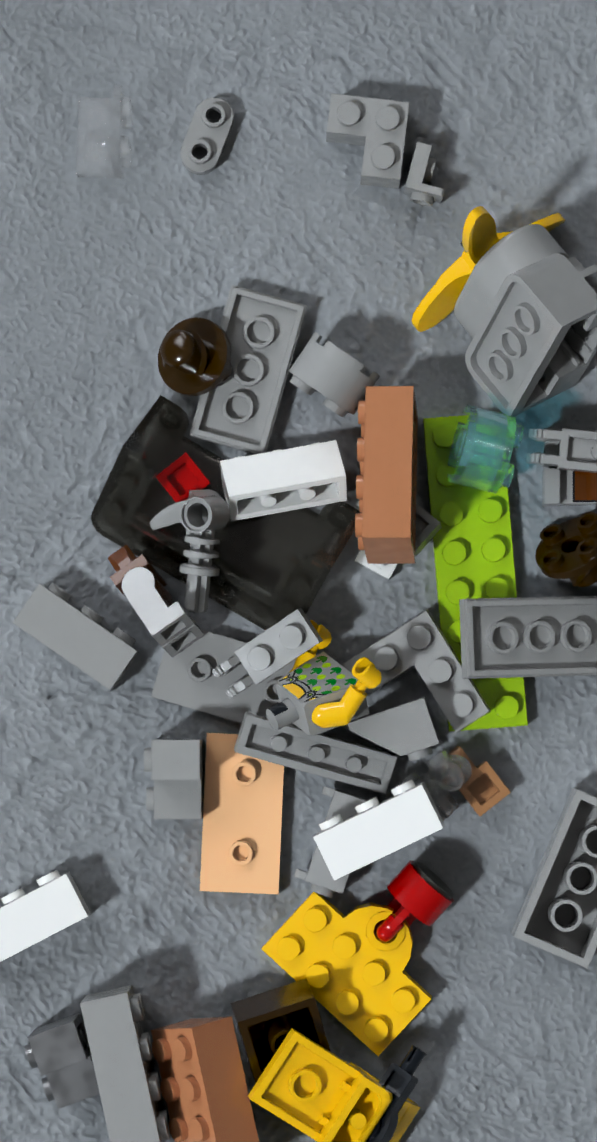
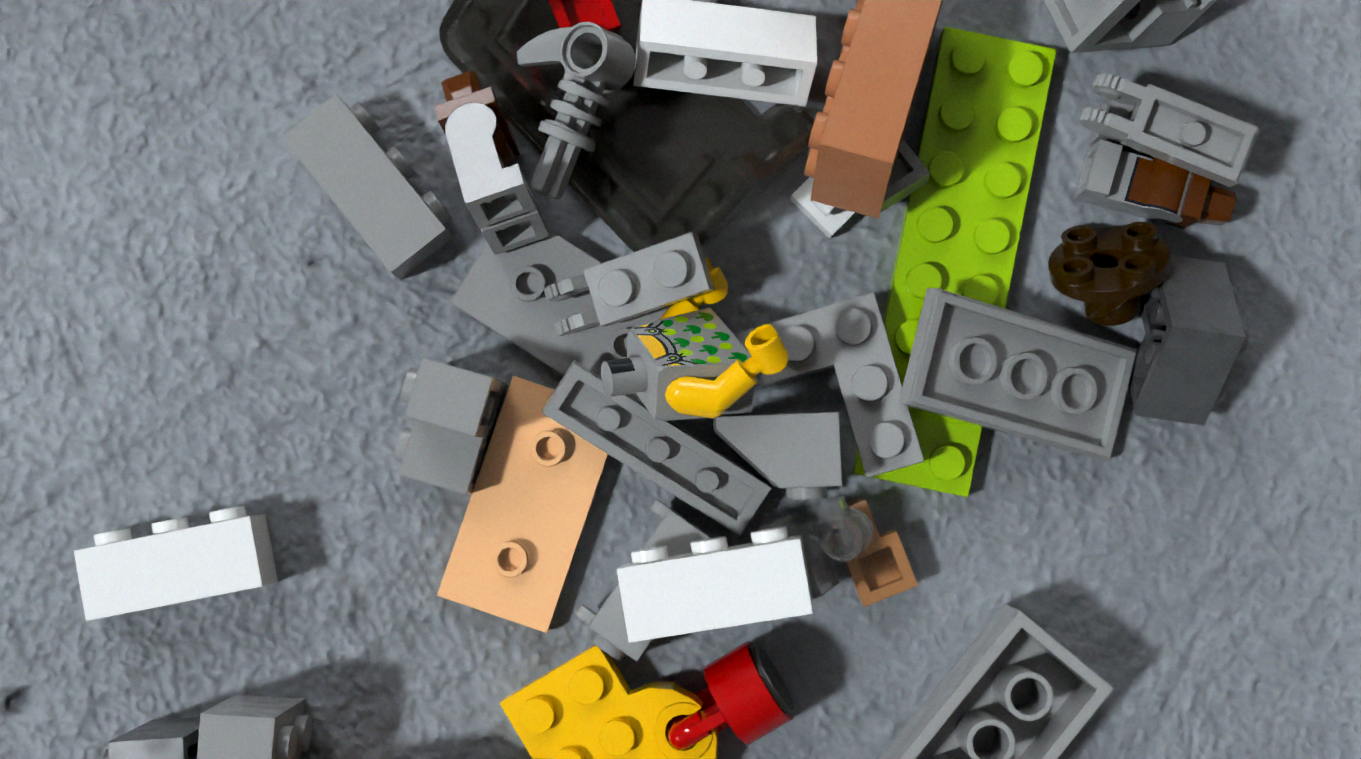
camera: 10 degrees right, 0 degrees up
(484, 449) = (1027, 82): clear light blue brick -> none

